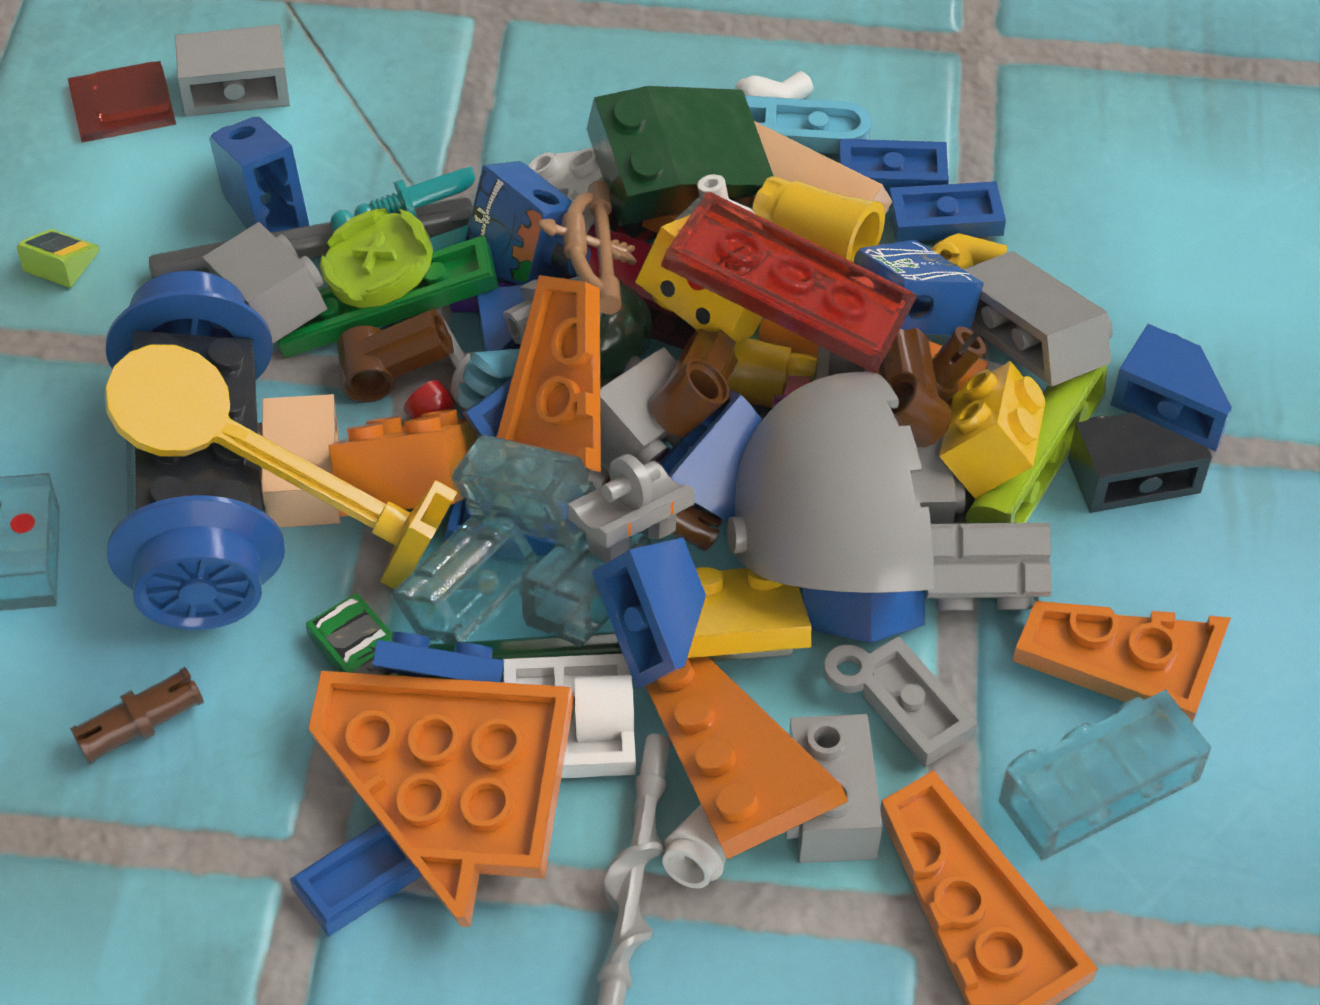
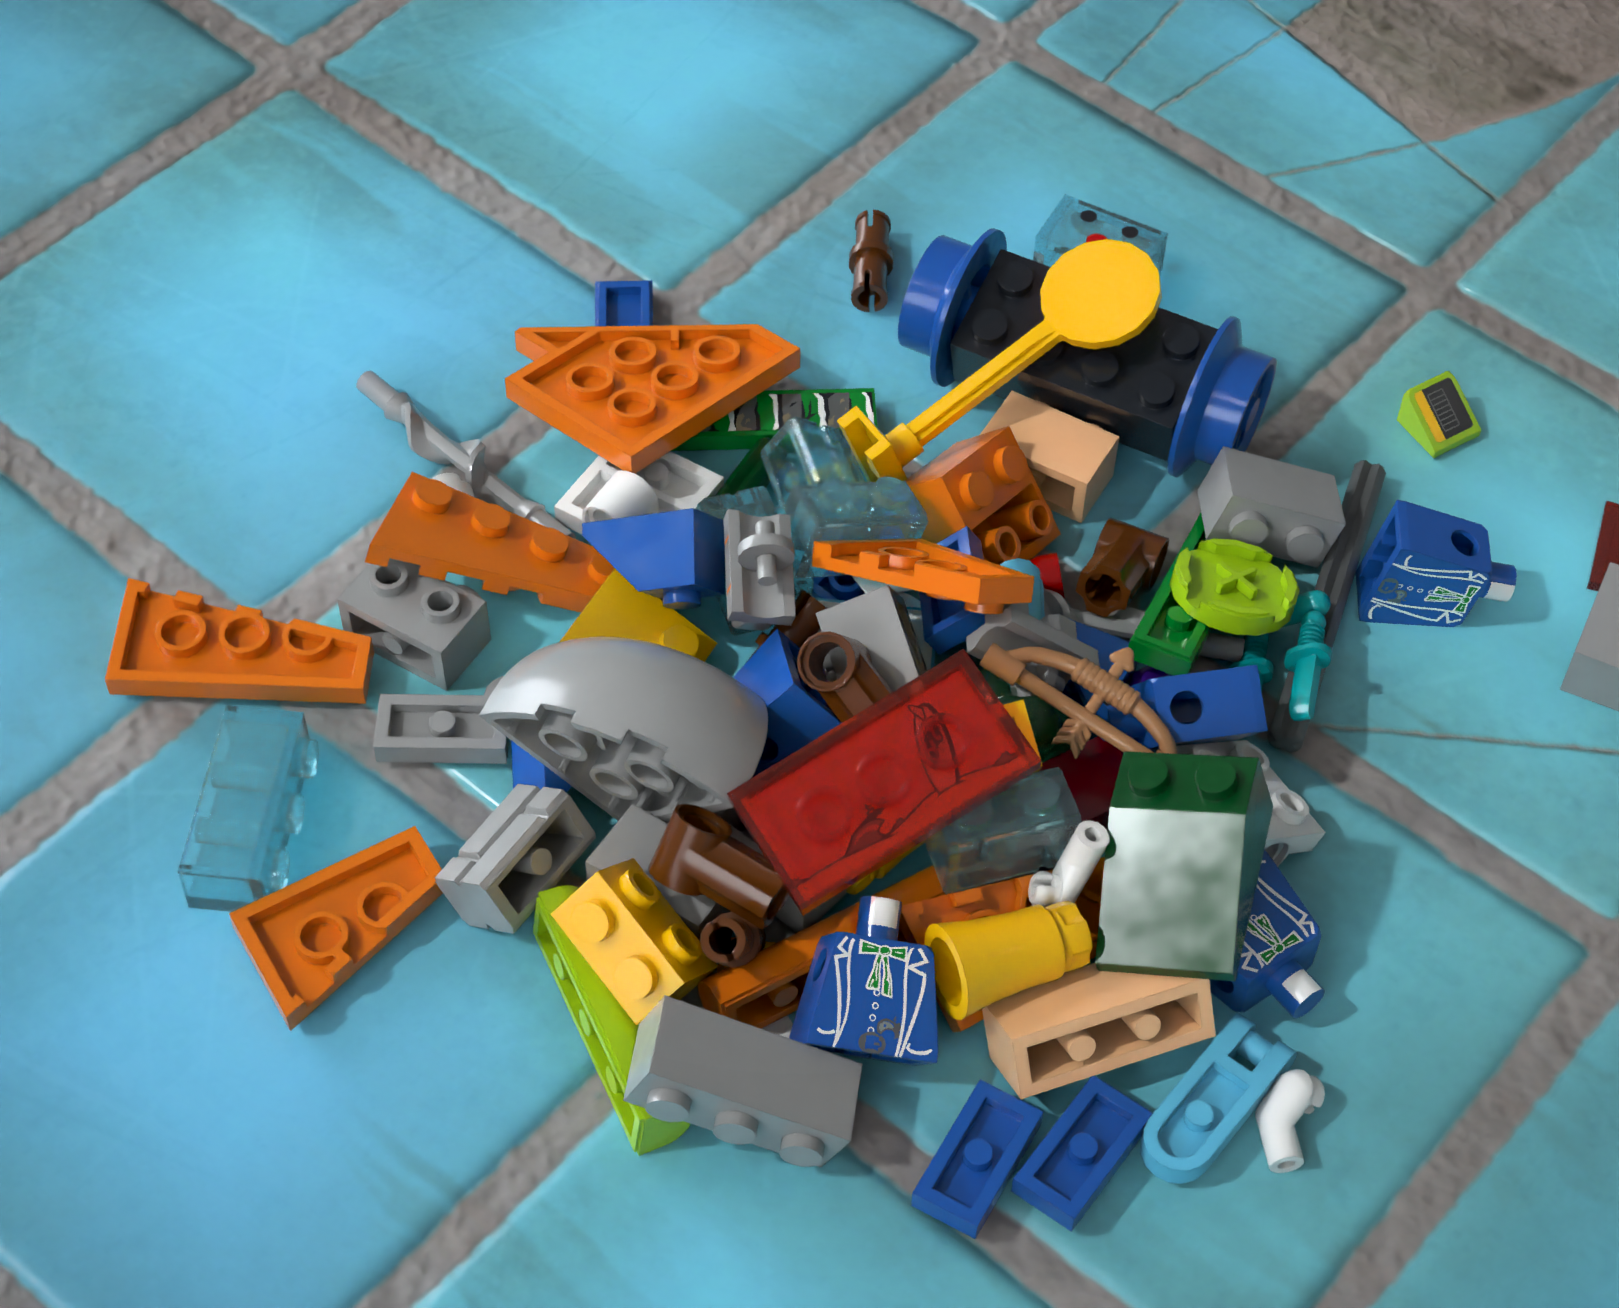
camera: 125 degrees right, 0 degrees up
(411, 656) = (742, 417): blue plate -> none
(968, 250) = (913, 1140): yellow arm -> none
(1134, 462) = (520, 1077): black slope -> none
(1173, 387) = (573, 1189): blue slope -> none

